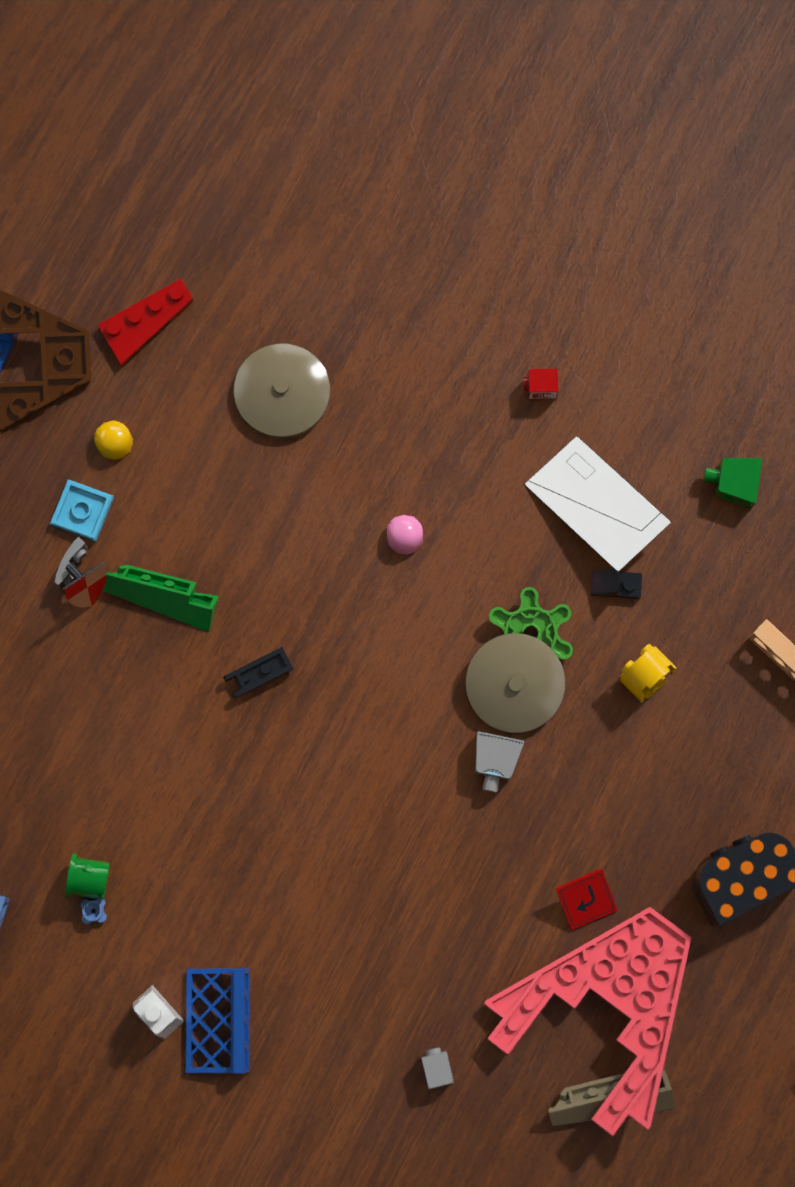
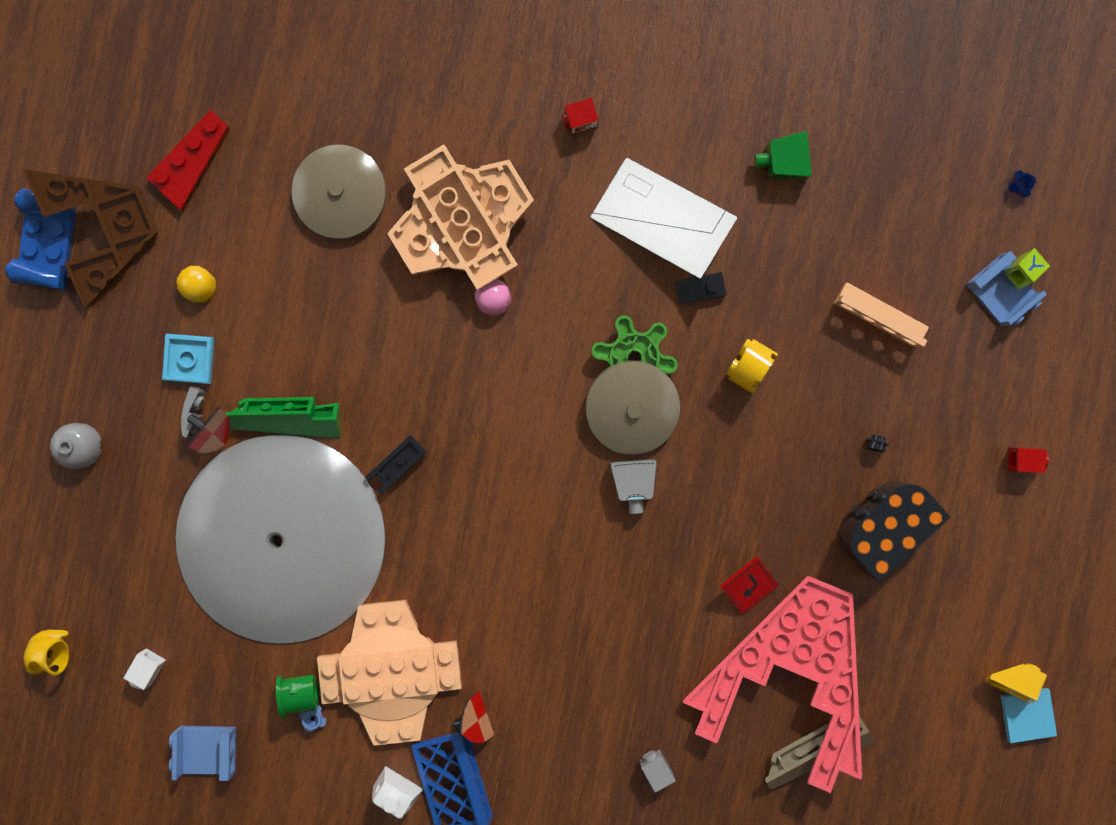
camera: 10 degrees left, 10 degrees up
(127, 767) = (327, 530): none -> light grey dish
(187, 886) = (389, 672): none -> light nougat plate
(261, 959) = (474, 723): none -> shield
(396, 448) = (461, 217): none -> light nougat plate
(756, 790) = (877, 443): none -> black plate

